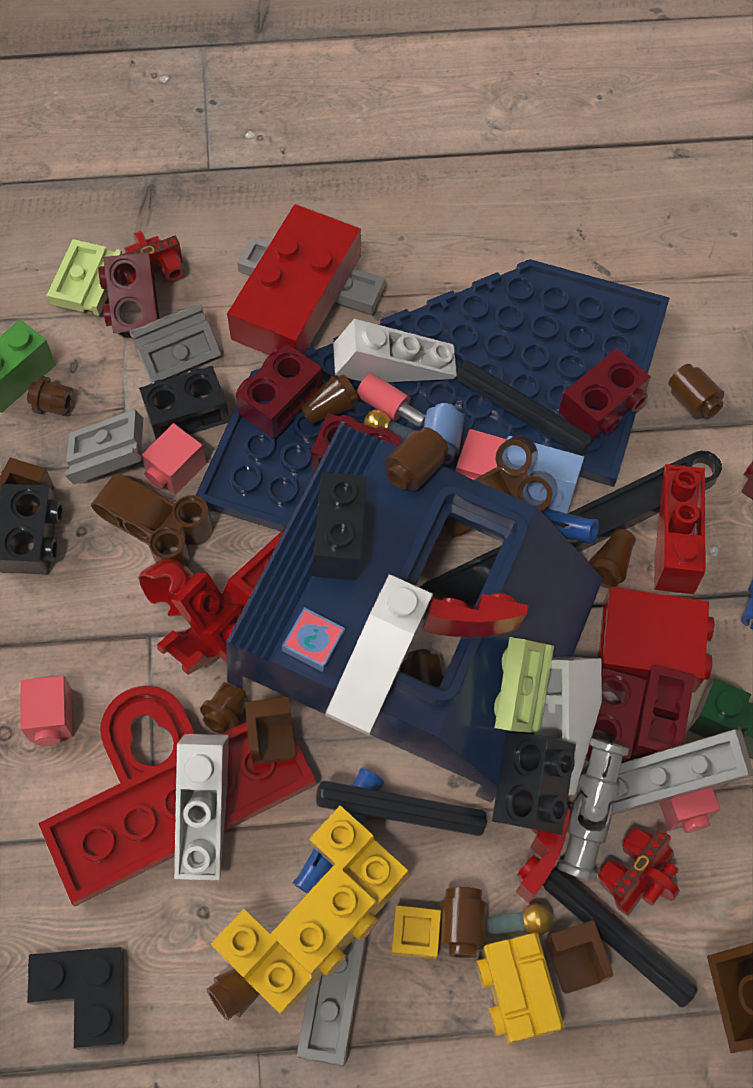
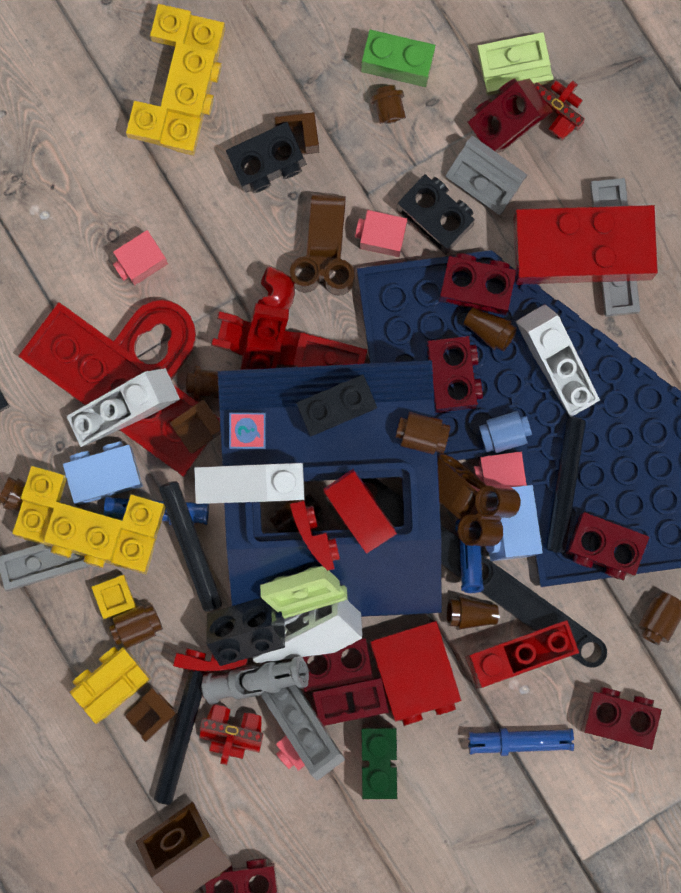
camera: 65 degrees right, 20 degrees up
(104, 447) = (364, 175): light grey plate -> none
(264, 872) = (102, 474): none -> light blue brick
(379, 418) = (490, 378): piece -> none
(389, 399) = (515, 375): coral piece -> none
(471, 554) = (359, 511): none -> red slope
(533, 919) = (163, 674): piece -> none

